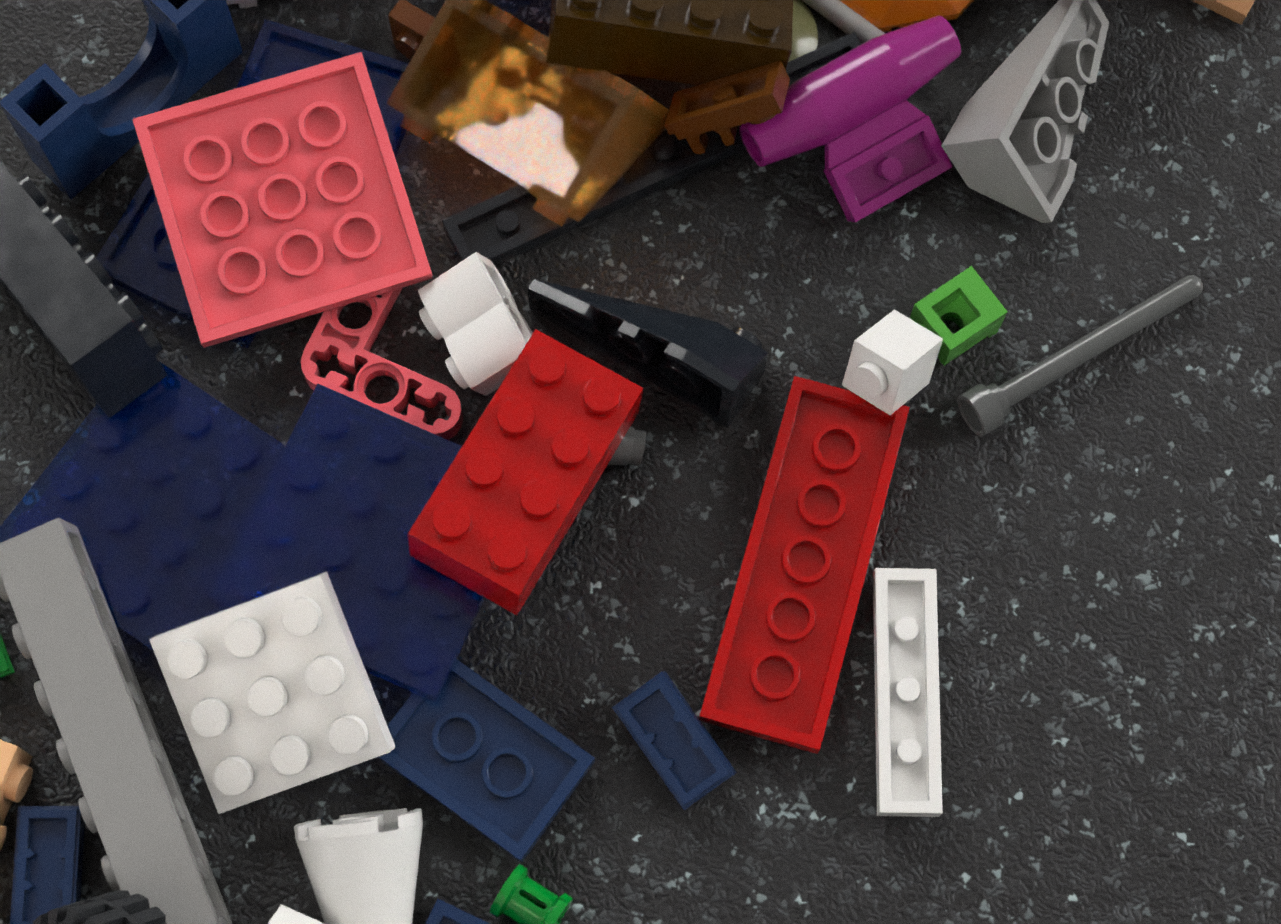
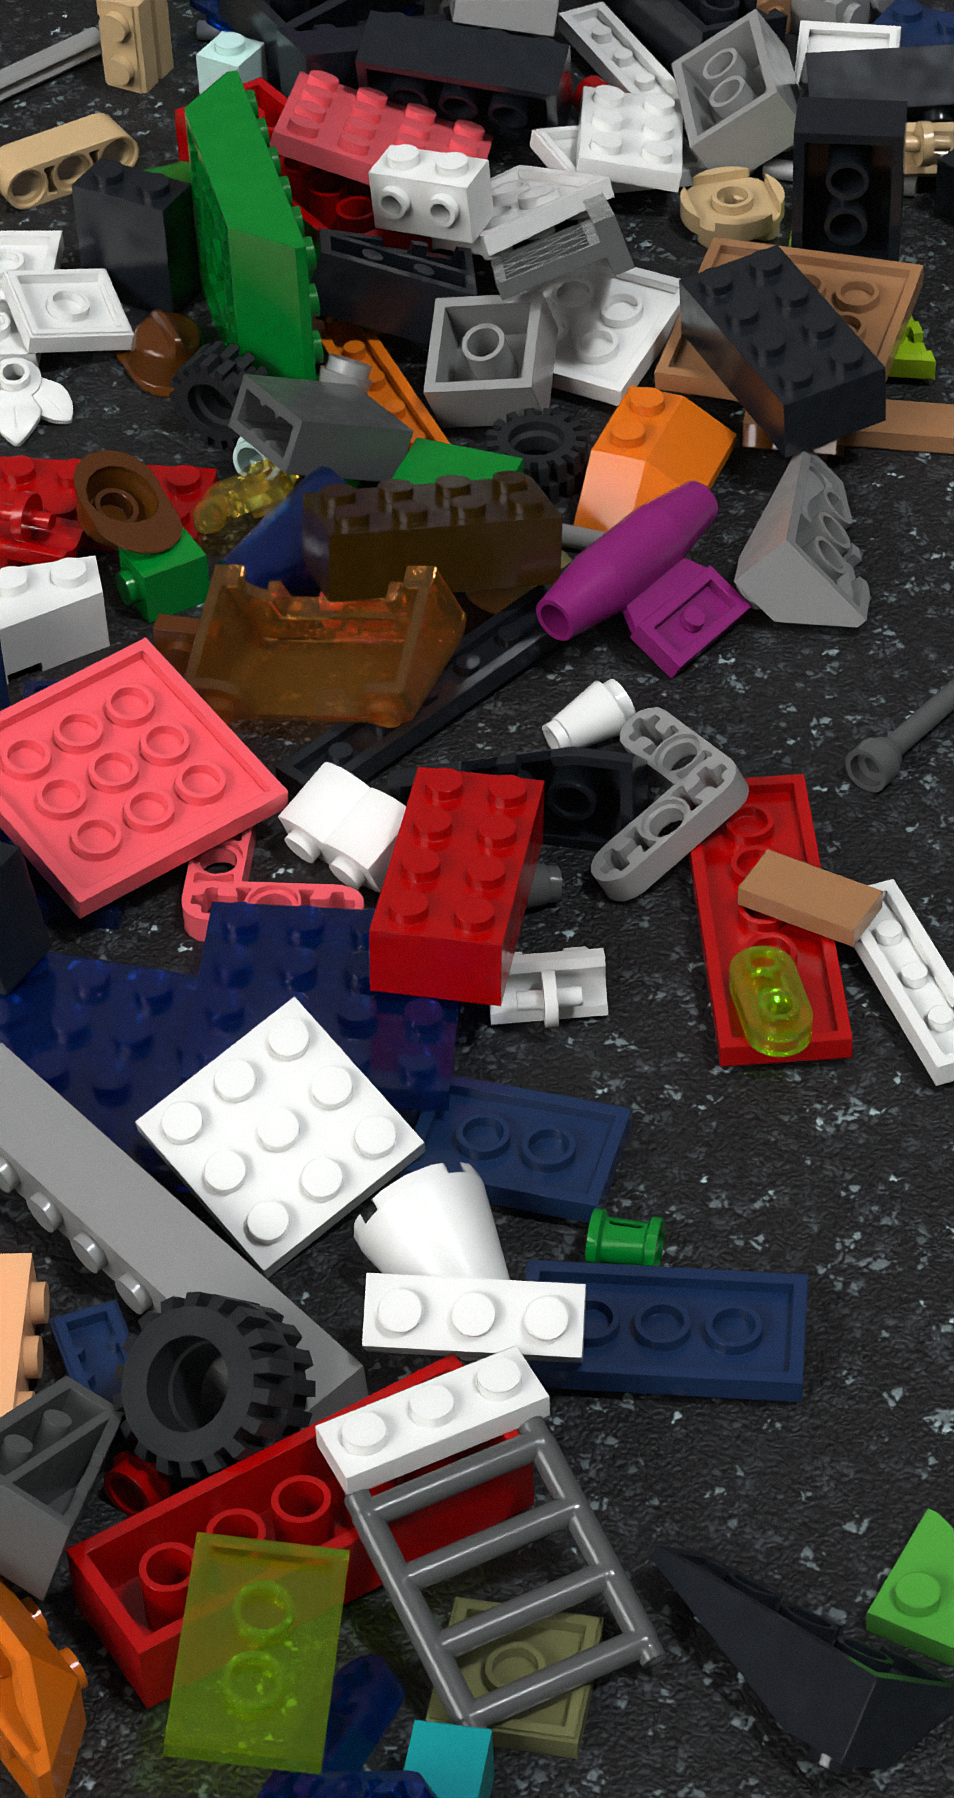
camera: 15 degrees left, 30 degrees down
(588, 583) = (554, 987): none -> white hips
(674, 740) = (704, 1079): dark blue plate -> none
(726, 103) = (538, 570): reddish brown plate -> none
(748, 257) = (590, 717): none -> white cone
(762, 684) = (770, 1001): none -> clear neon green plate
(795, 400) = (707, 782): none -> light grey beam
(847, 574) = (810, 897): none -> medium nougat tile
(892, 362) = (770, 739): white brick -> none
(966, 303) = (806, 715): bright green brick -> none

